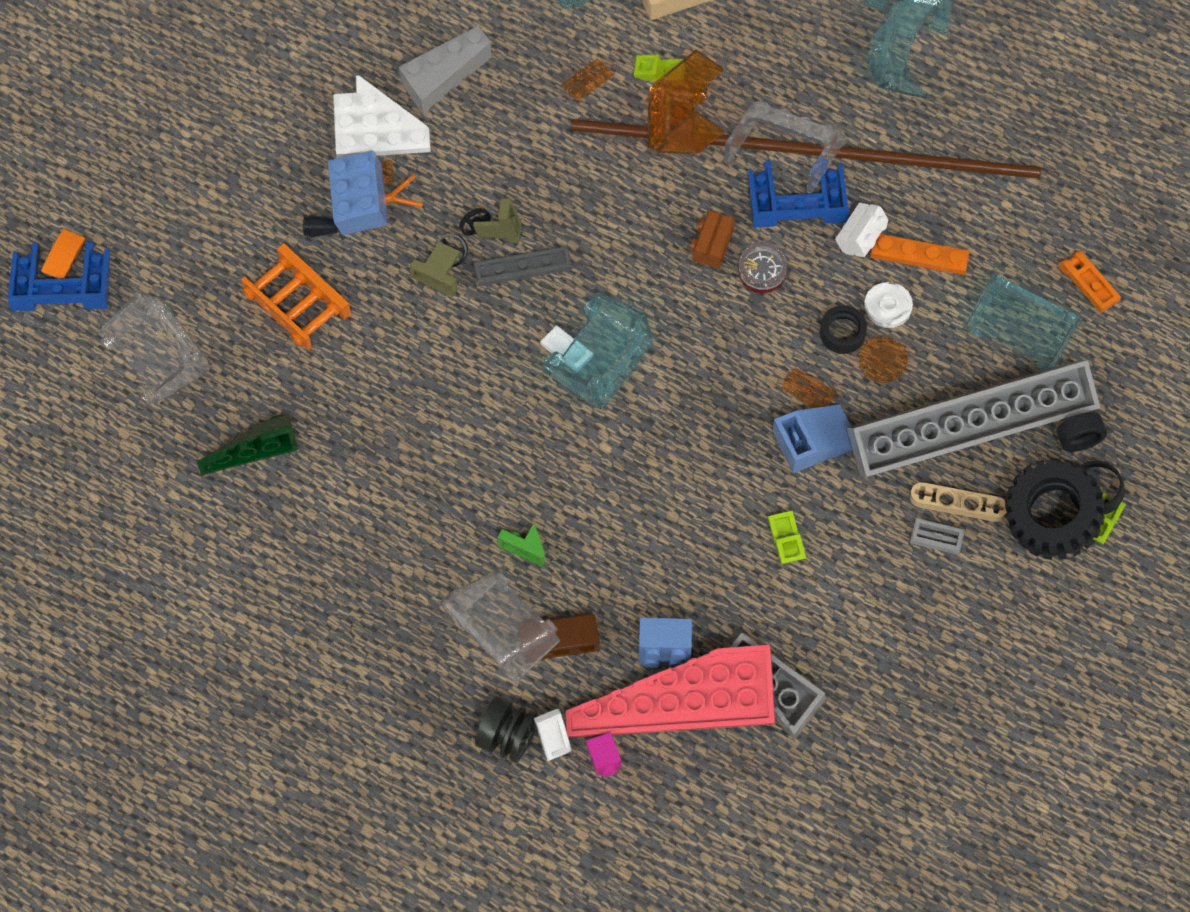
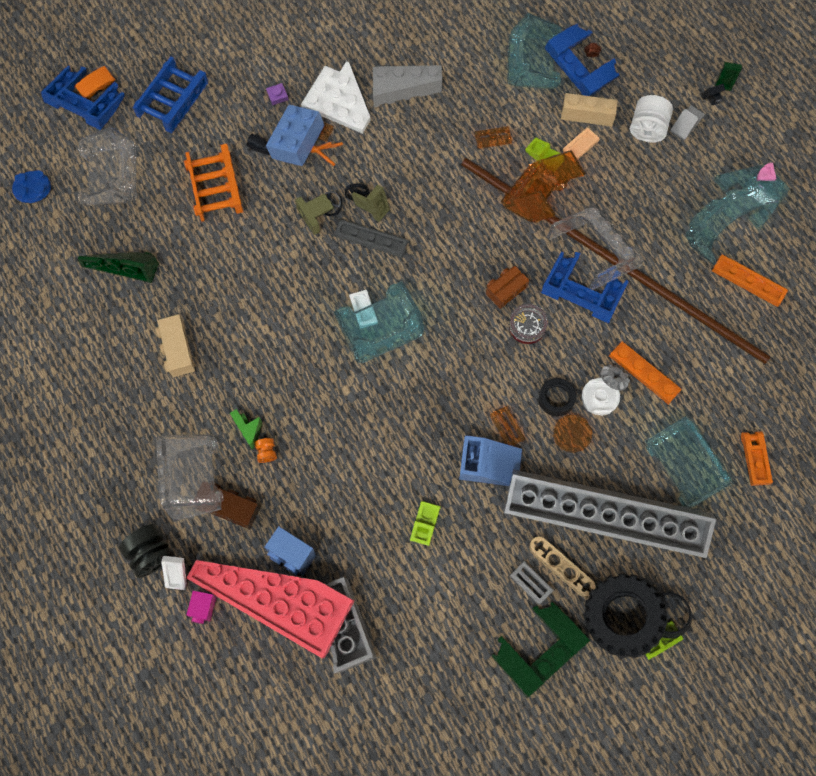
camera: 30 degrees right, 5 degrees up
(71, 416) = (31, 186): none -> blue piece
(189, 231) = (179, 107): none -> blue fence
(297, 156) = (277, 94): none -> medium lavender plate
(380, 501) = (175, 346): none -> tan brick
(562, 557) = (265, 450): none -> orange wheel
(692, 35) = (582, 143): none -> light nougat tile
(862, 230) = (613, 334): white brick -> none
(883, 273) = (619, 383): none -> light grey gear
(971, 96) = (750, 280): none -> orange plate
(995, 629) = (532, 677): none -> dark green wedge
(1081, 432) = (682, 567): black tyre -> none

